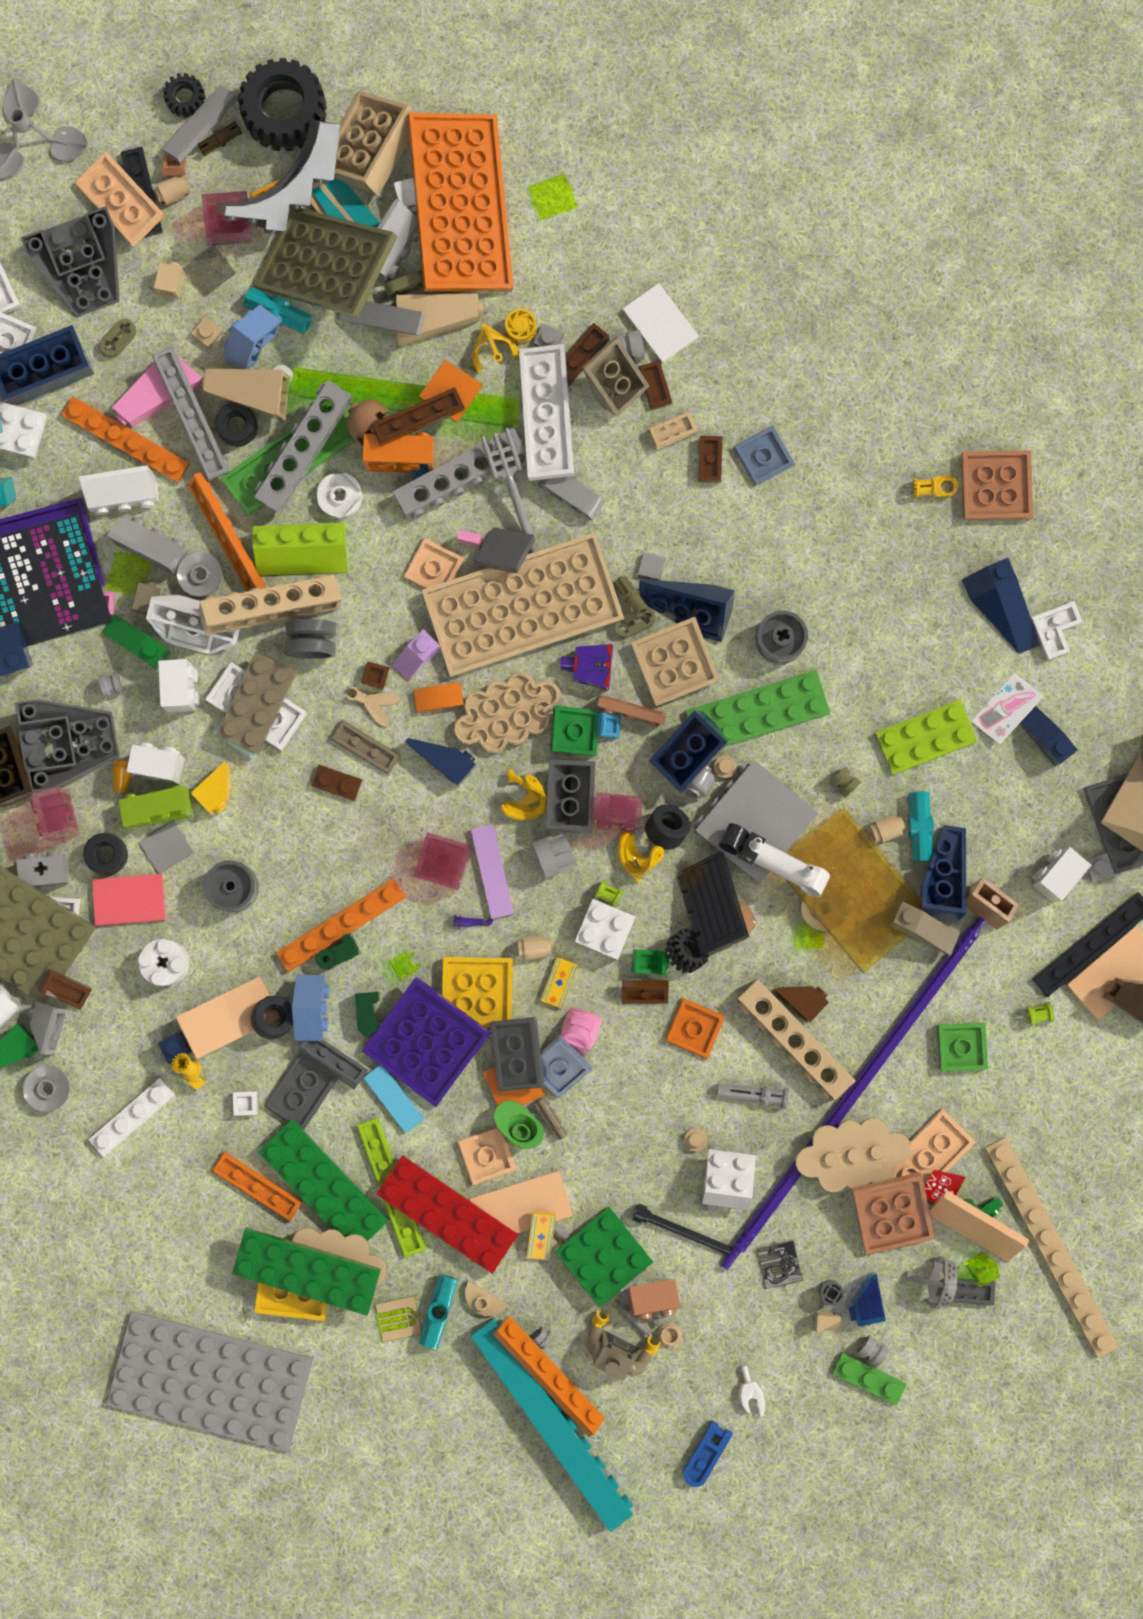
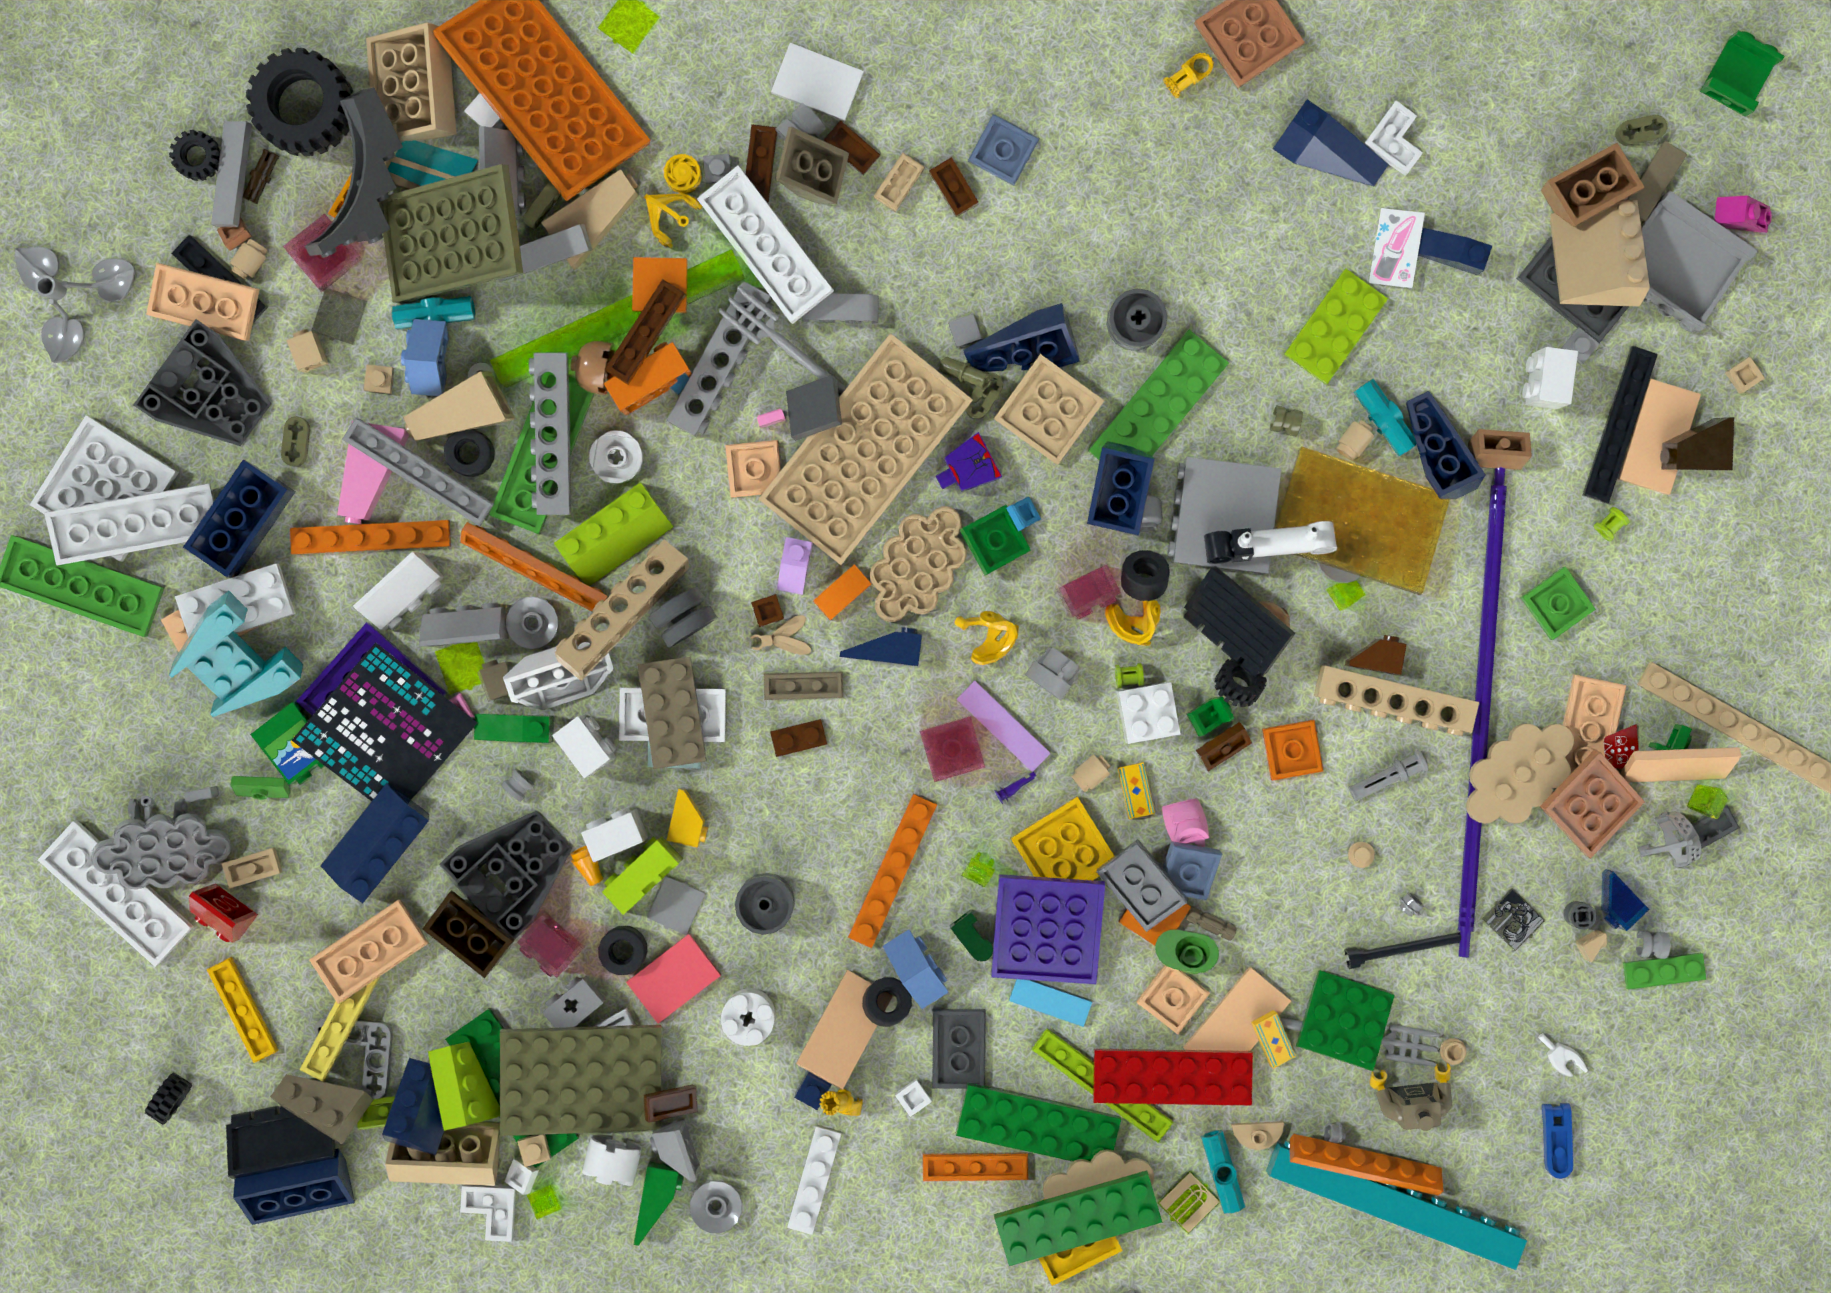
camera: 35 degrees left, 5 degrees up
(333, 1062) = (972, 1004): dark grey tile -> none
(338, 955) = (904, 908): dark green leg -> none
(570, 796) = (1033, 606): dark grey slope -> none
(631, 711) = (1037, 484): nougat plate -> none
(653, 1298) = (1418, 1030): nougat brick -> none
(725, 766) = (1162, 480): tan plate -> none
(729, 1179) = (1418, 873): white brick -> none
(922, 928) = (1451, 515): dark tan slope -> none

